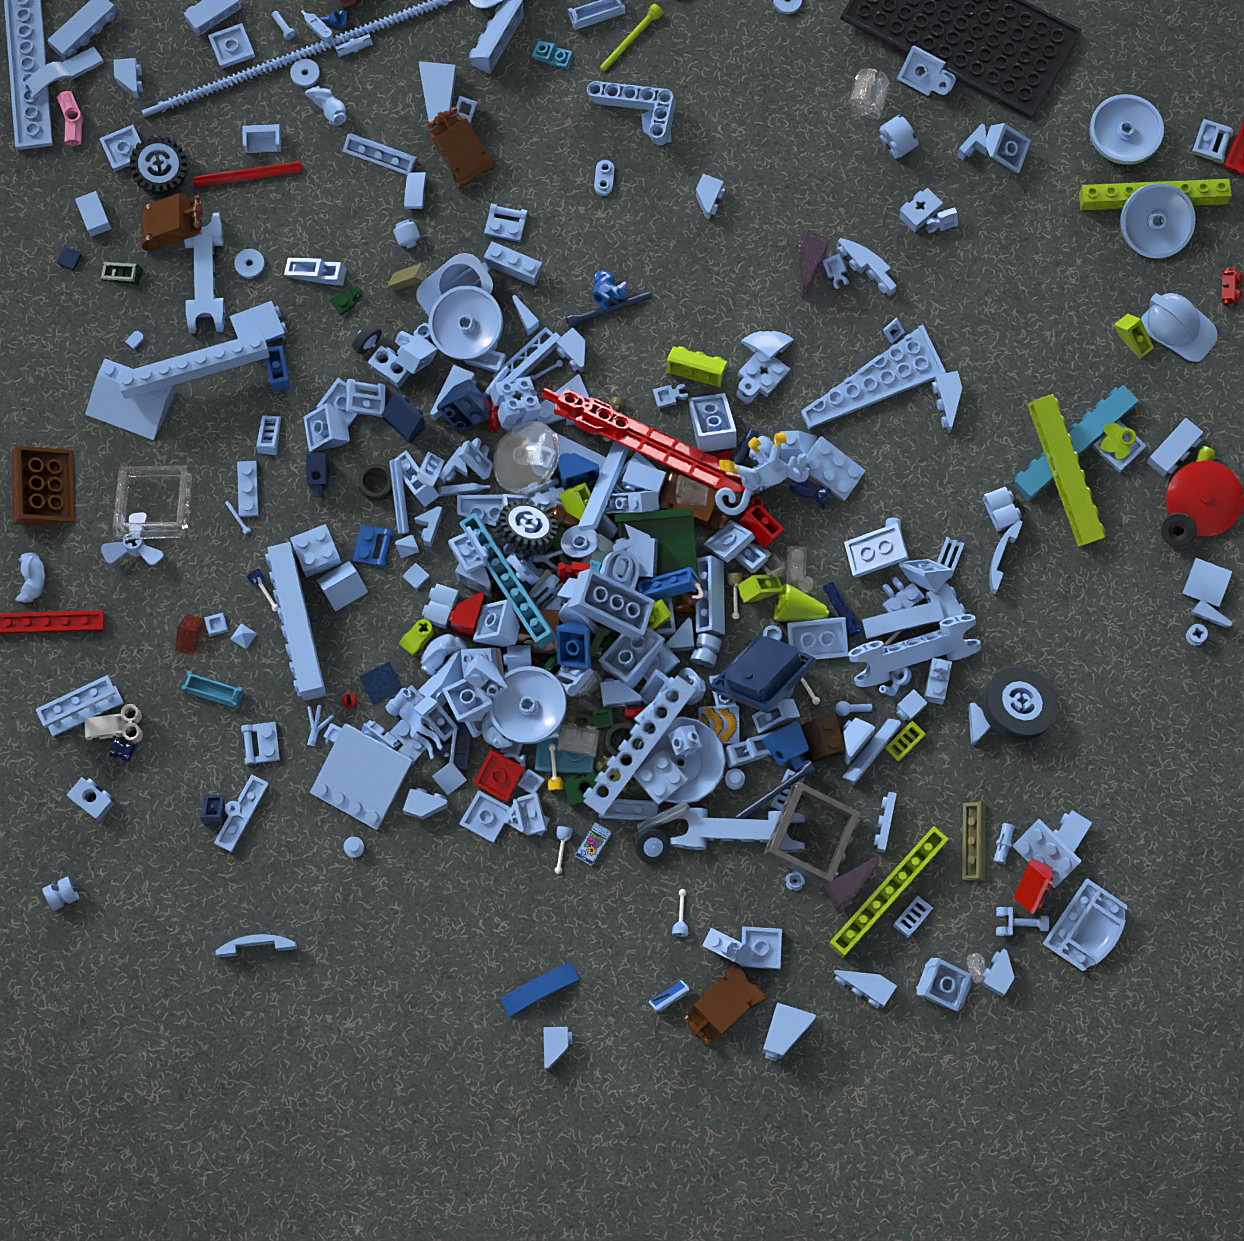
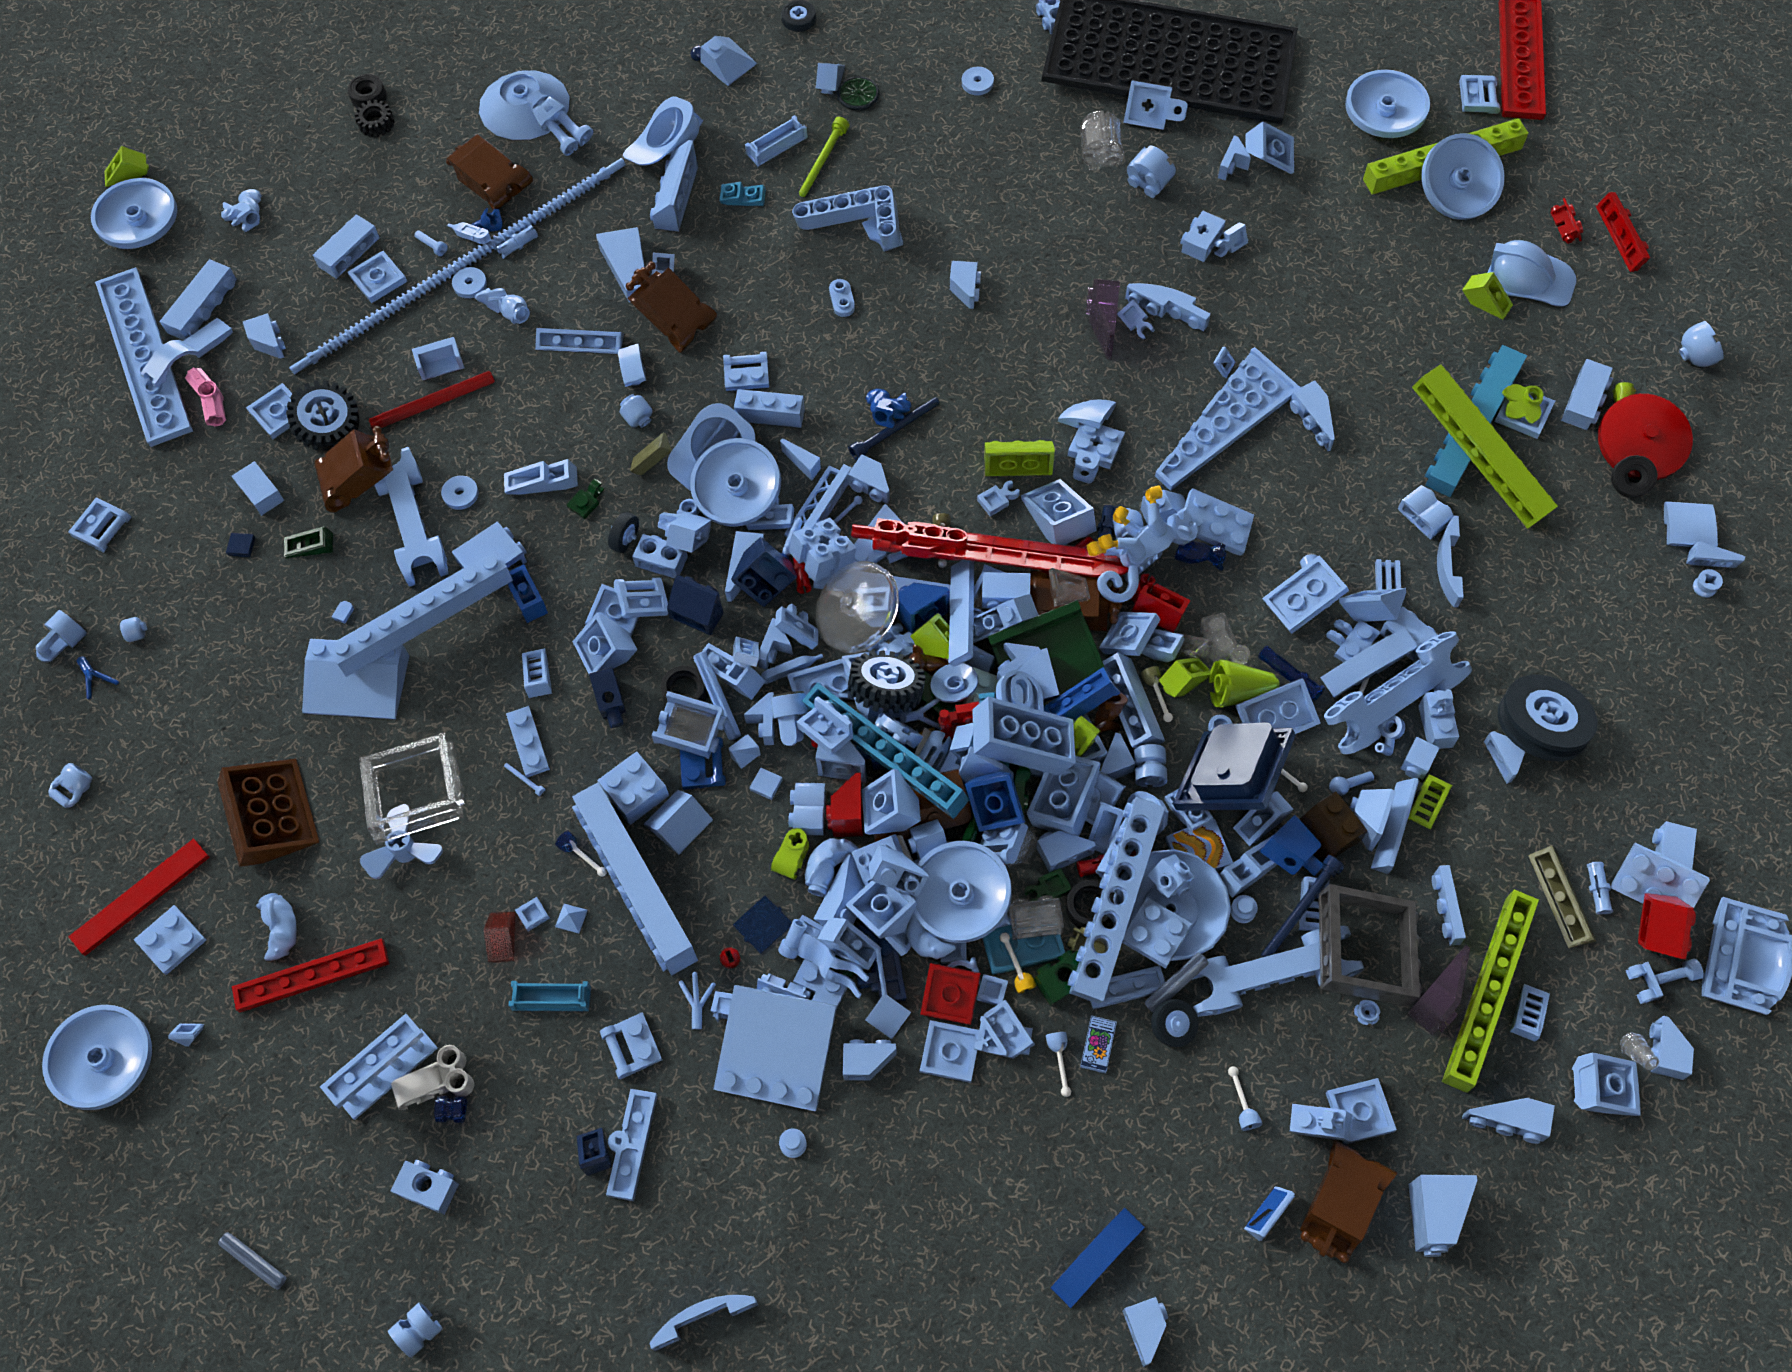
camera: 15 degrees left, 10 degrees down
(371, 515) = (690, 725): none -> window
(448, 528) = (788, 710): none -> light blue piece

